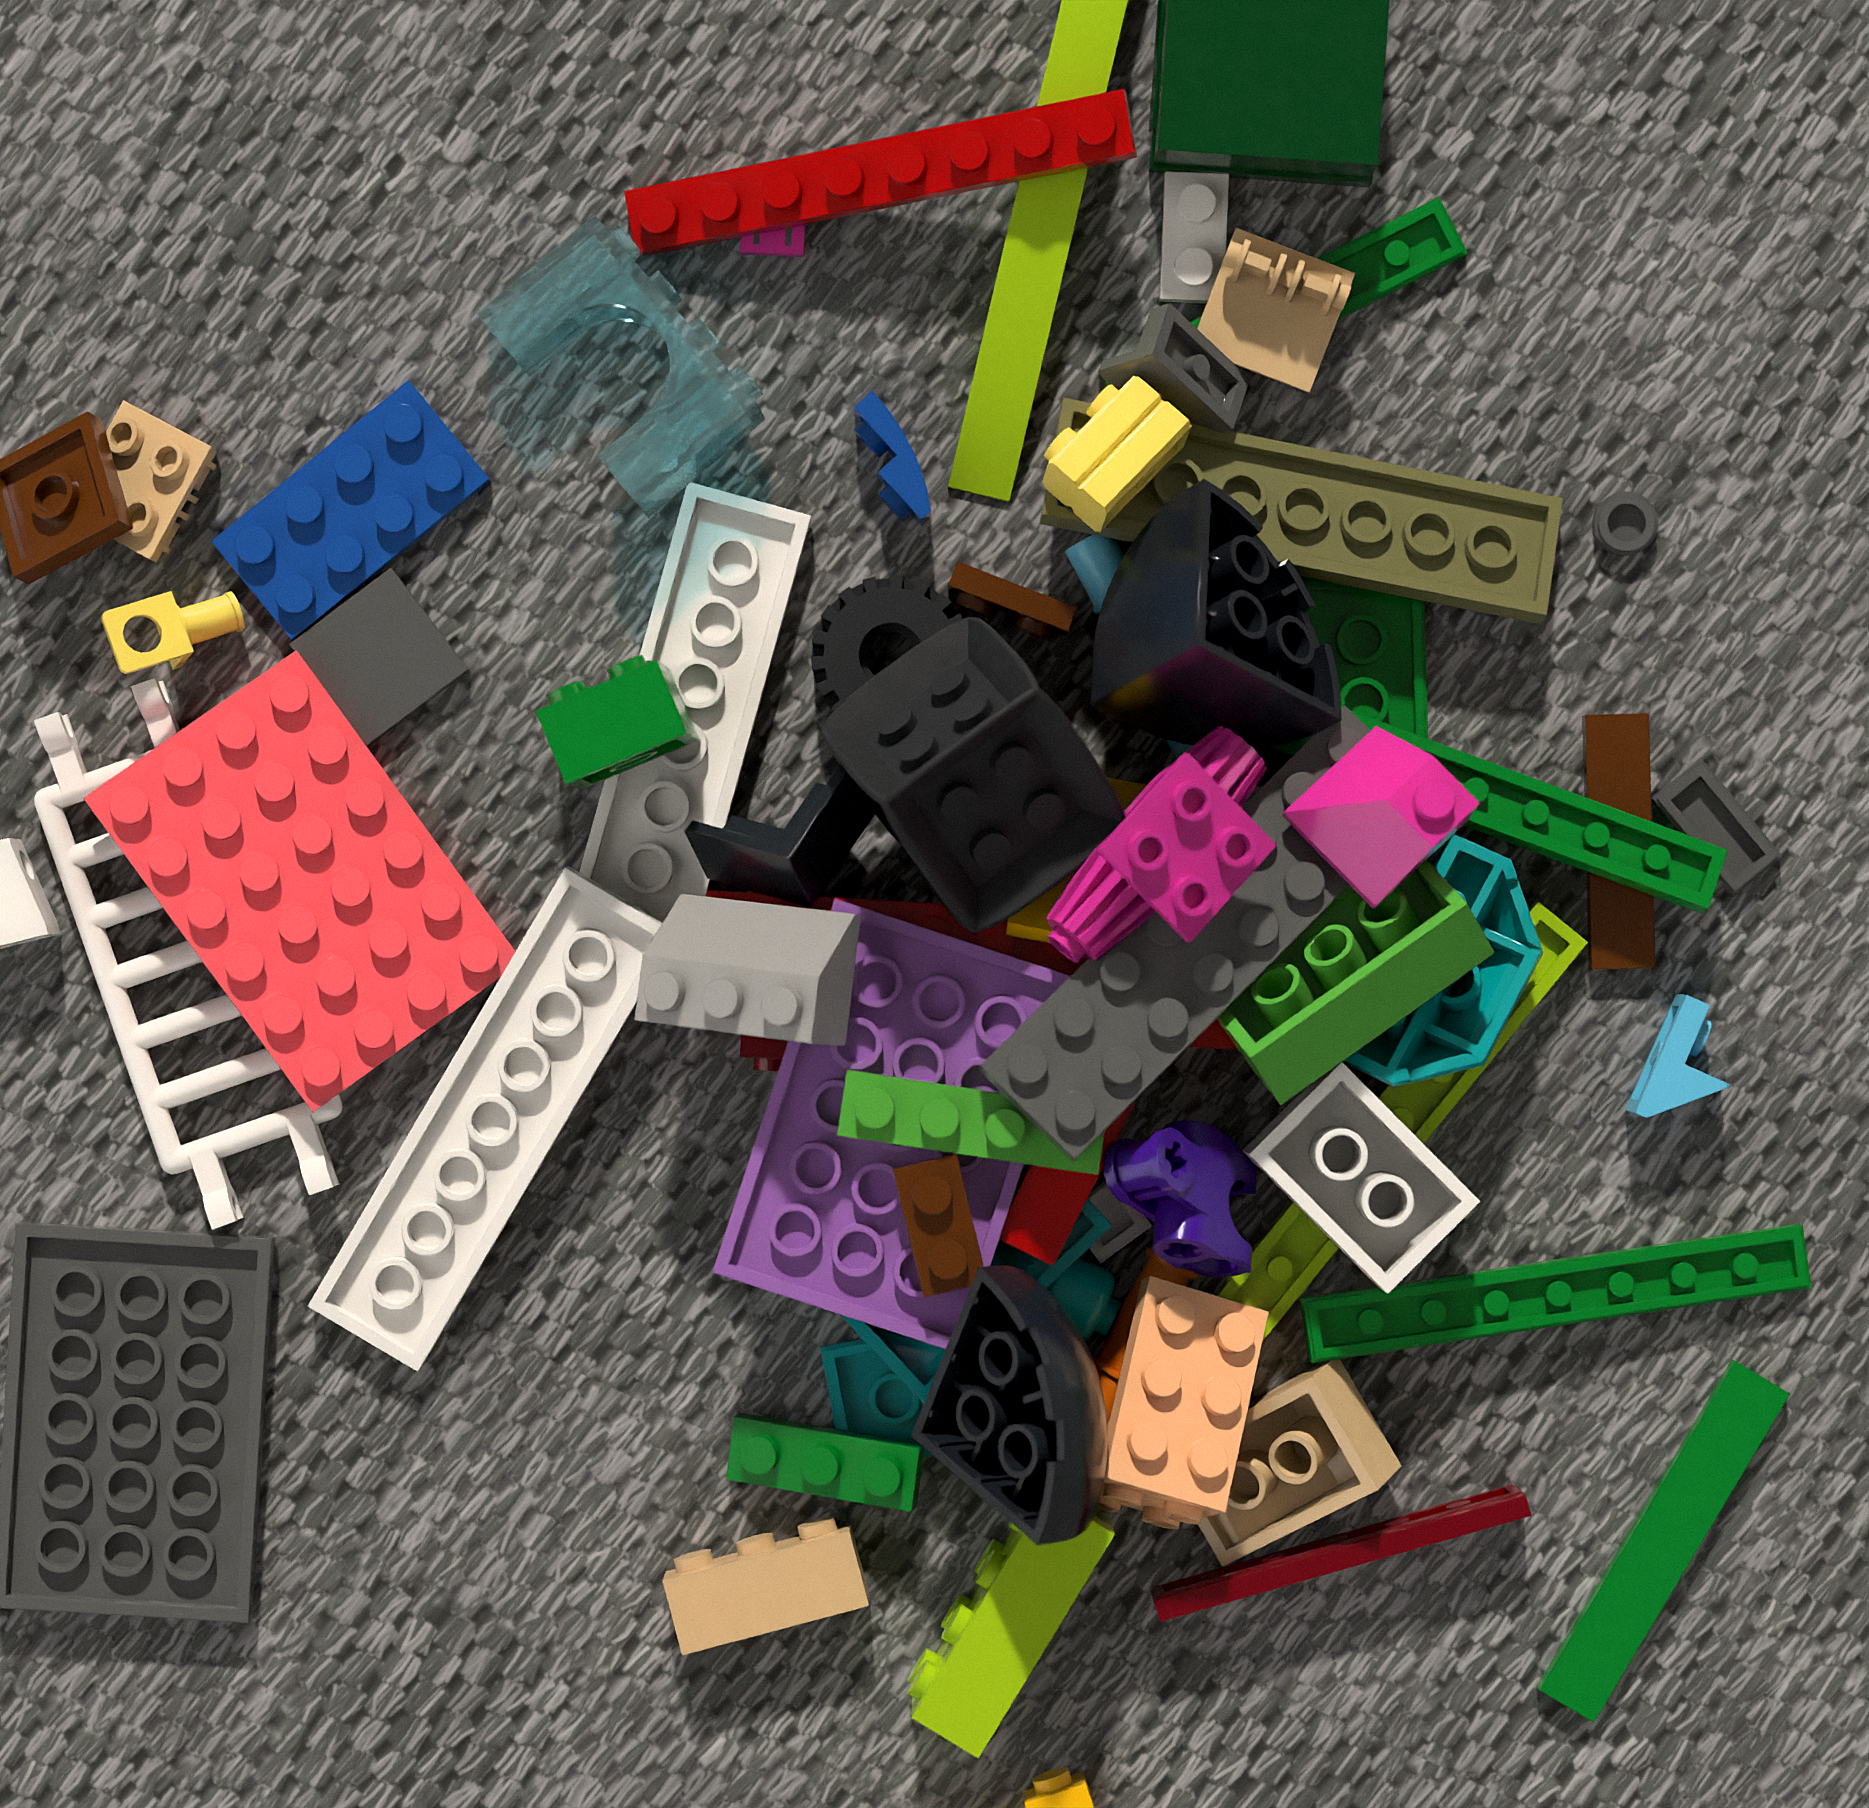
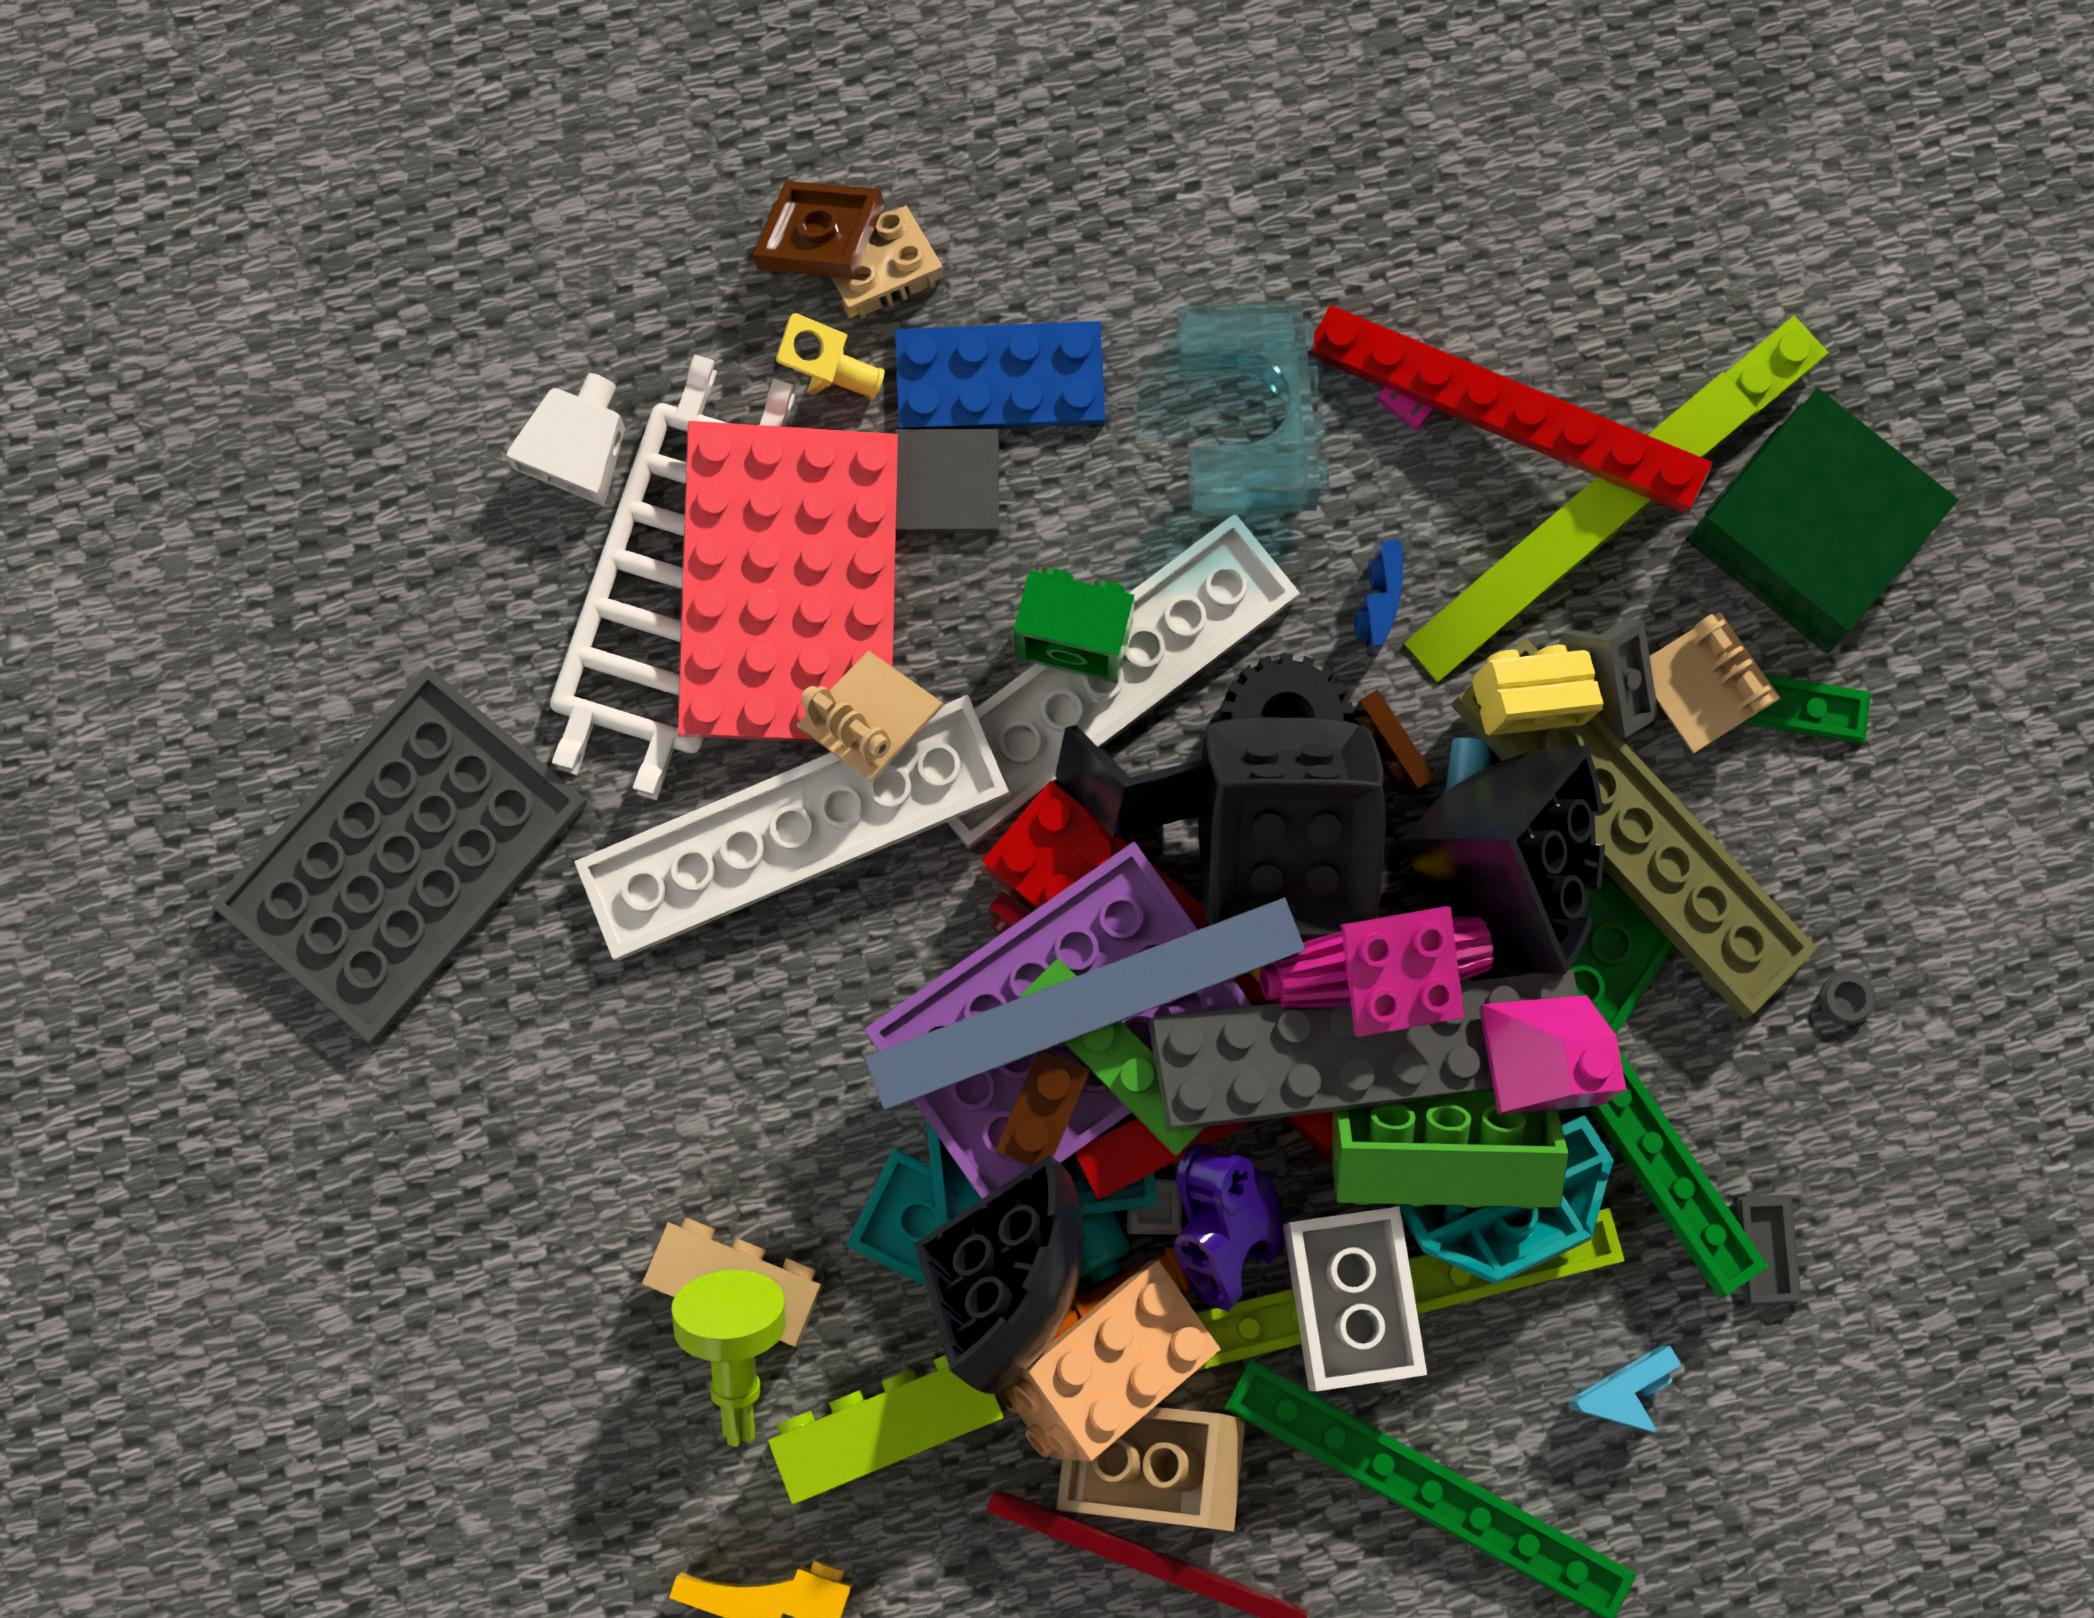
camera: 30 degrees right, 10 degrees down
(483, 959) = (867, 714): none -> tan hinge
(751, 970) = (1042, 847): light grey slope -> none
(794, 1637) = (729, 1322): none -> lime piece
(825, 1462) = (839, 1227): green plate -> none
(907, 1099) = (1084, 1004): none -> sand blue tile
(1192, 235) = (1687, 597): white plate -> none
(1618, 776) = (1659, 1258): reddish brown tile -> none

